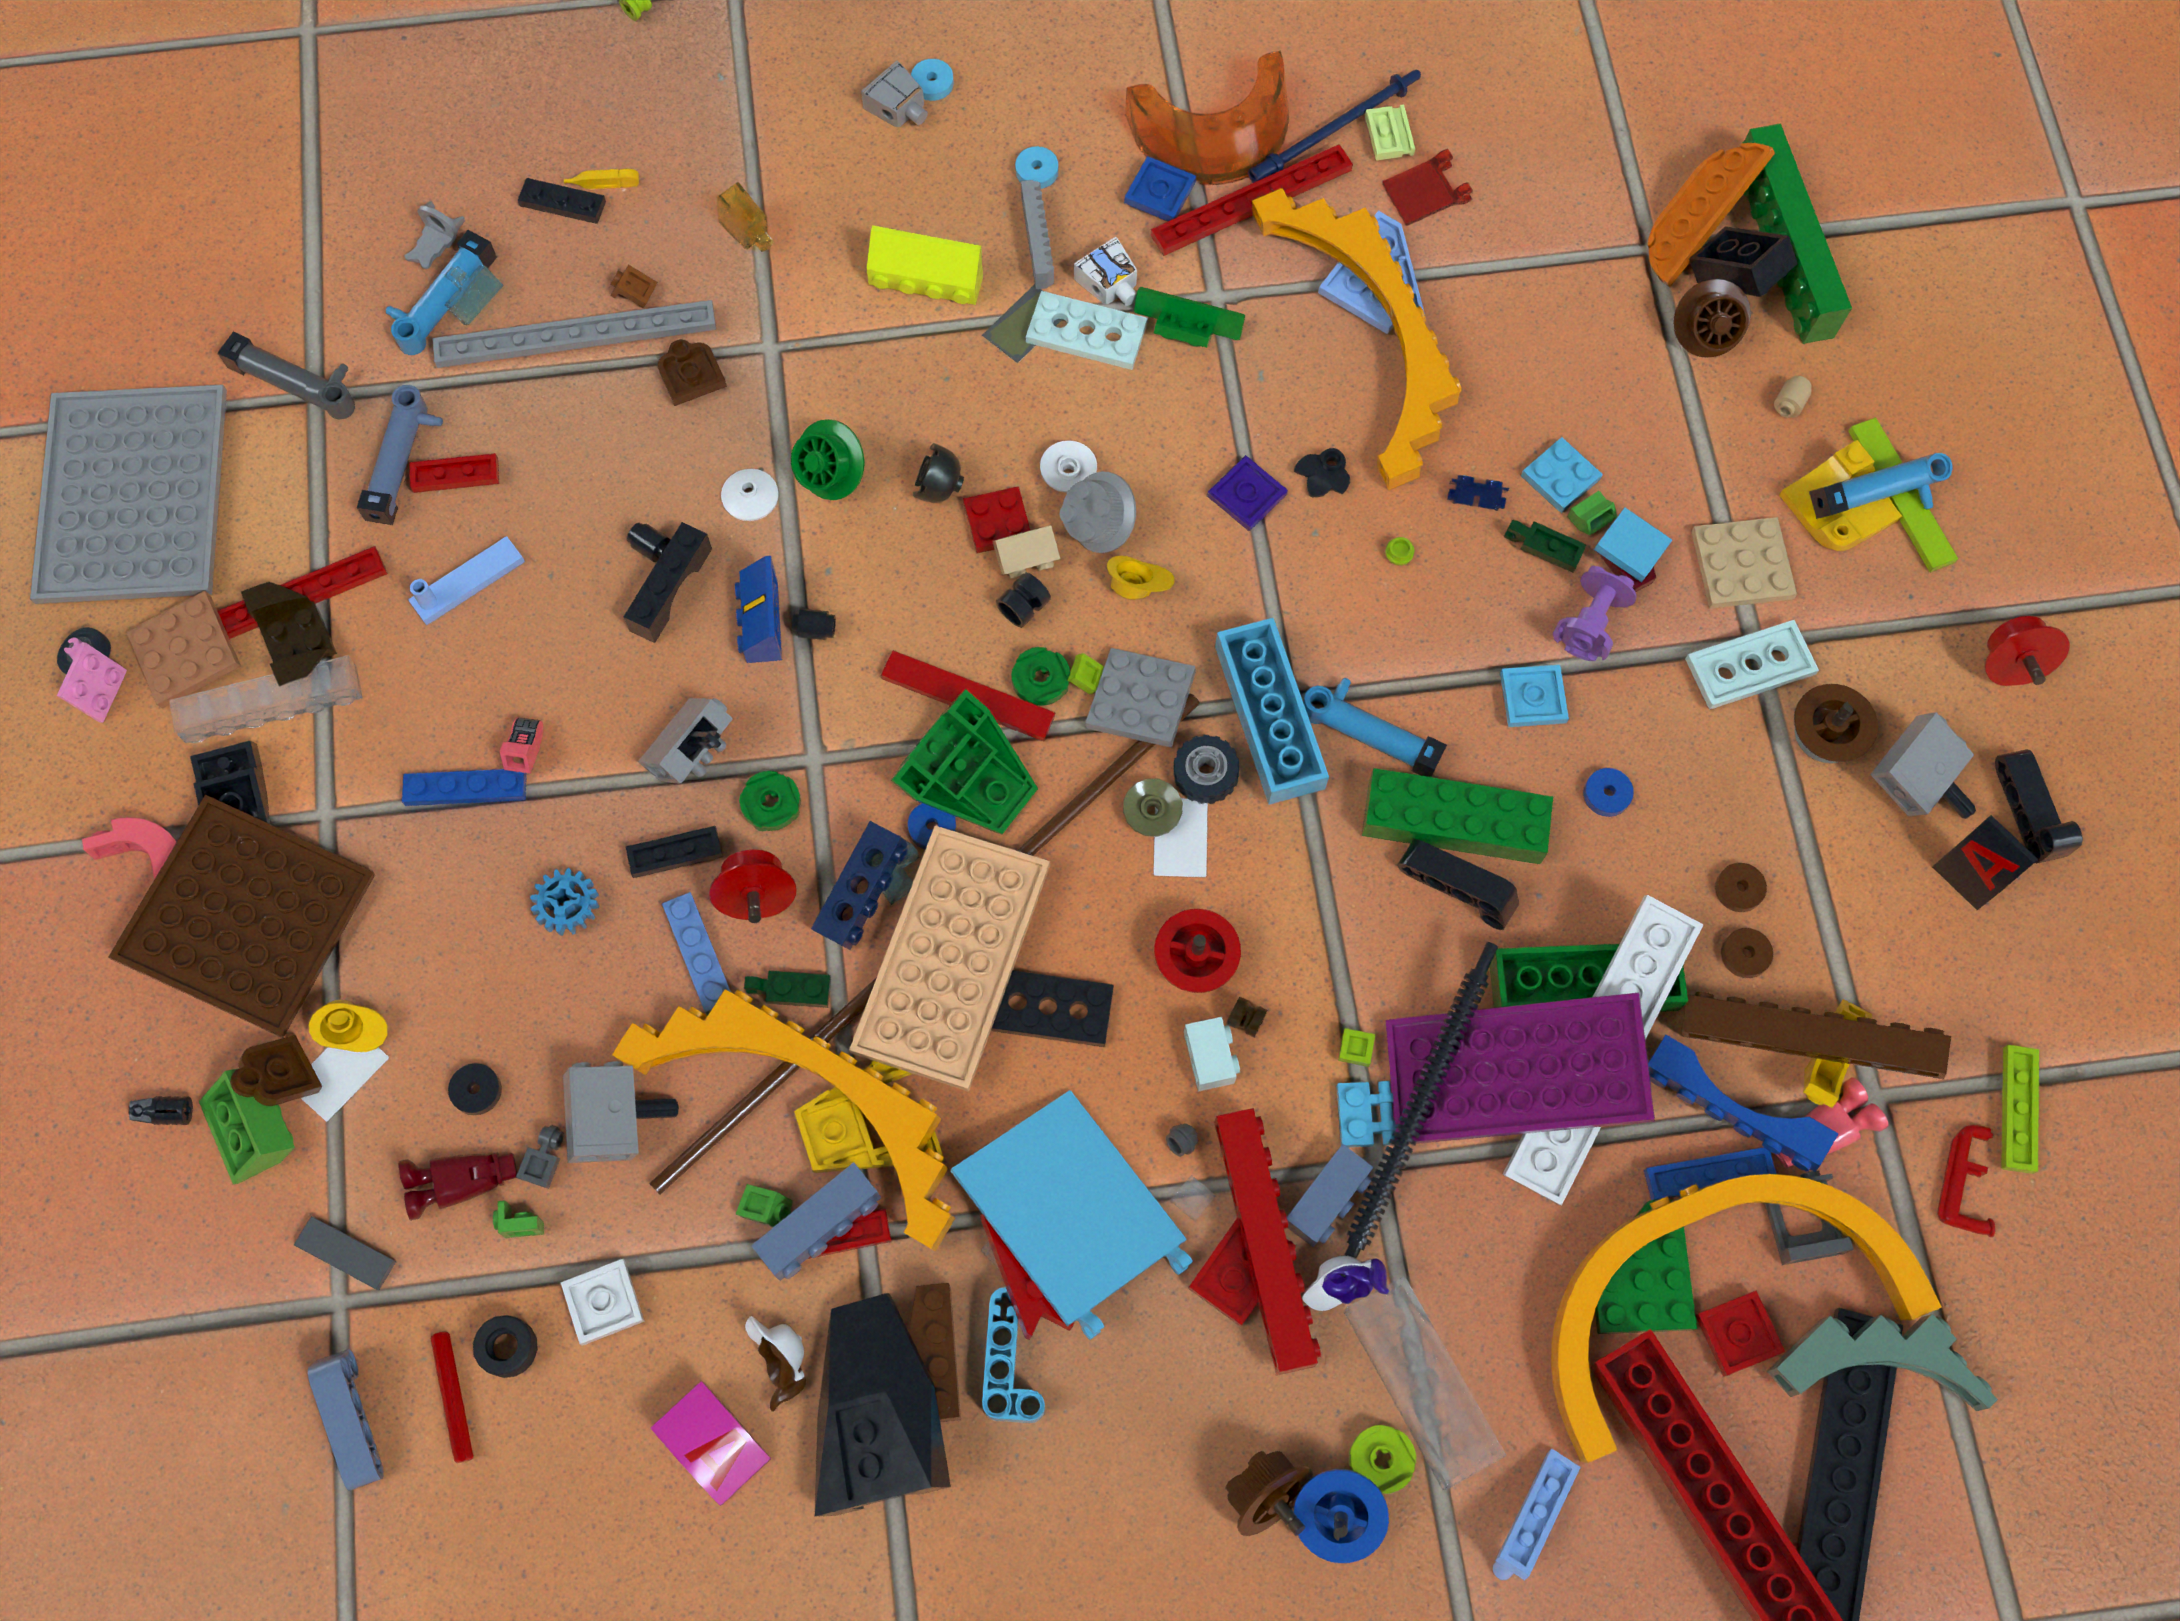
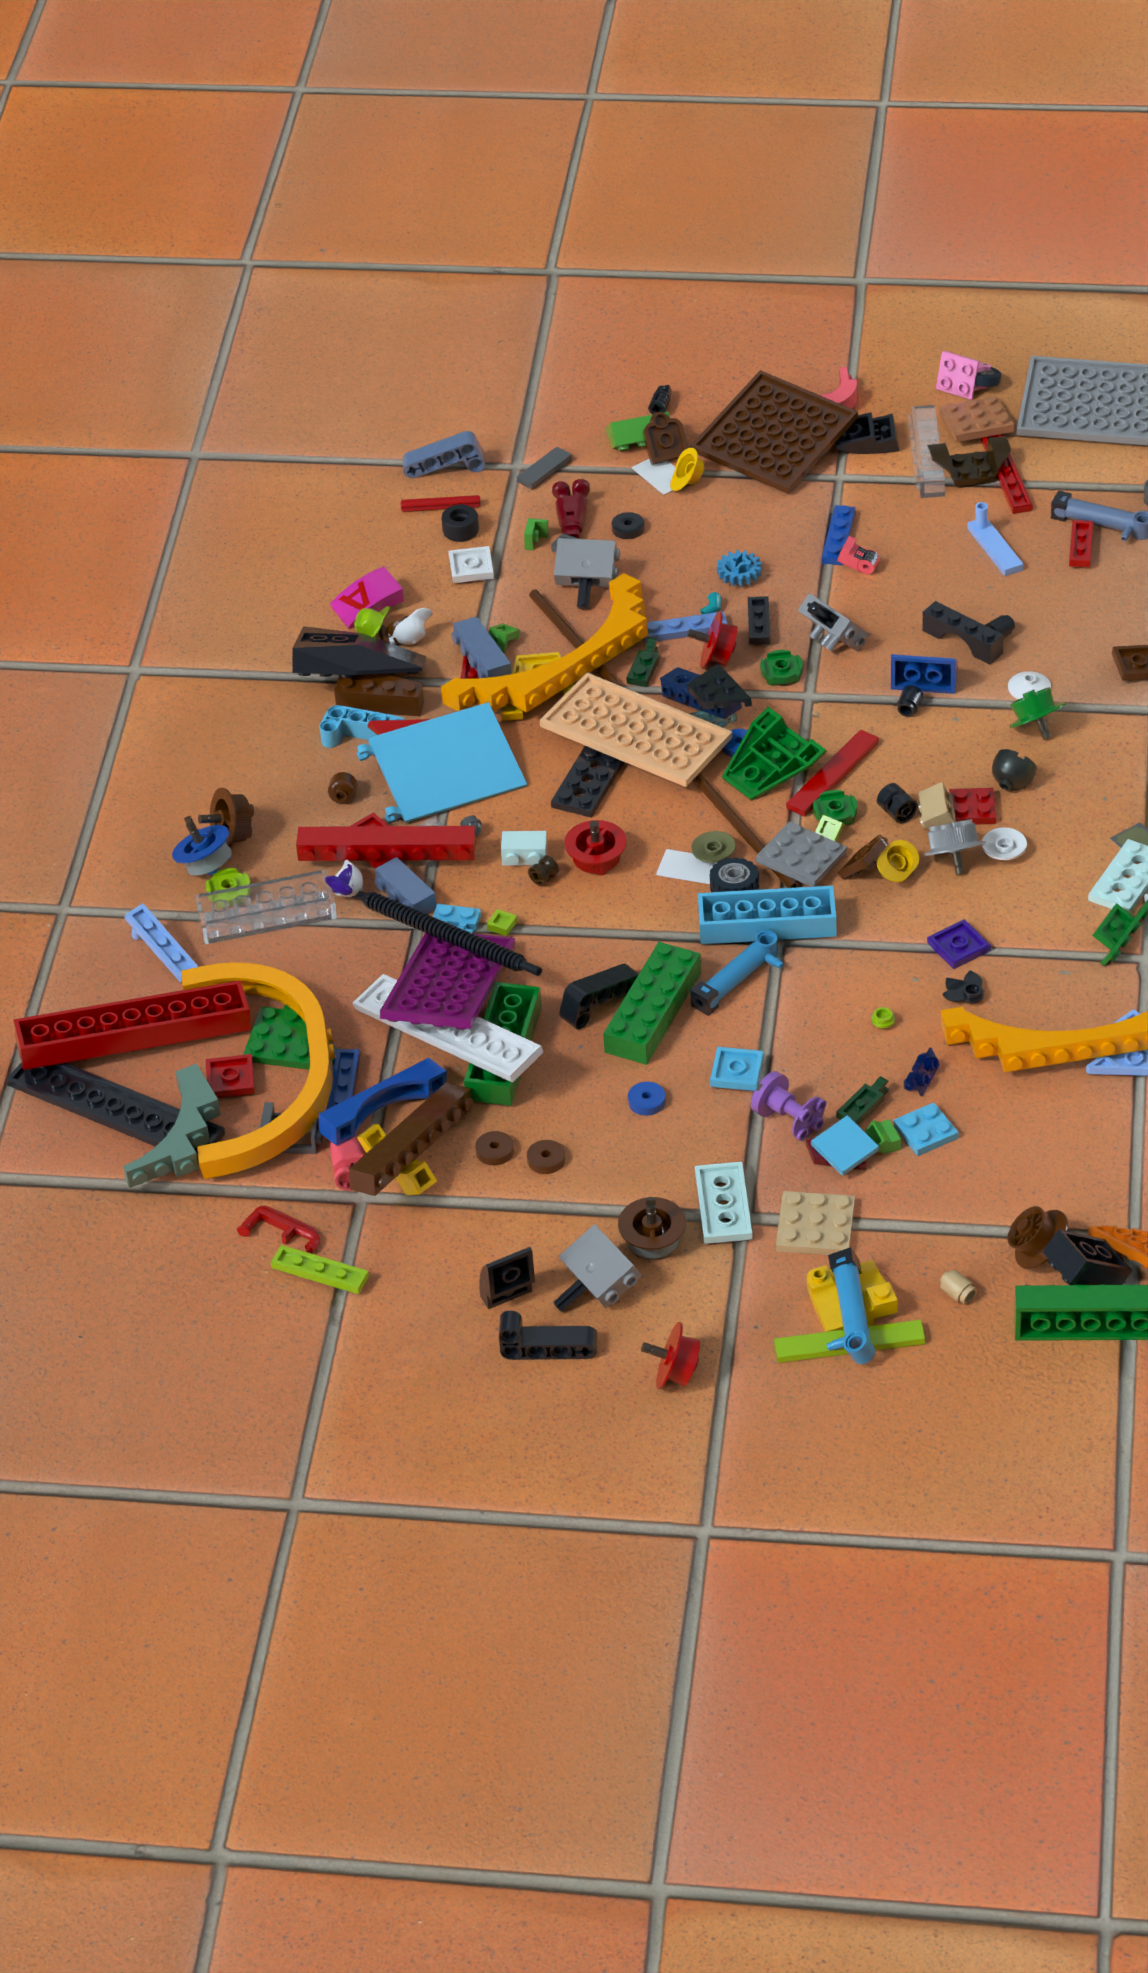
camera: 110 degrees right, 25 degrees down
(646, 921) = (715, 602): none -> teal arm
(773, 1412) = (370, 621): none -> lime piece
(881, 846) = (717, 689): none -> black wing
(1136, 614) = (863, 857): none -> reddish brown plate
(1144, 1349) = (342, 788): none -> reddish brown head

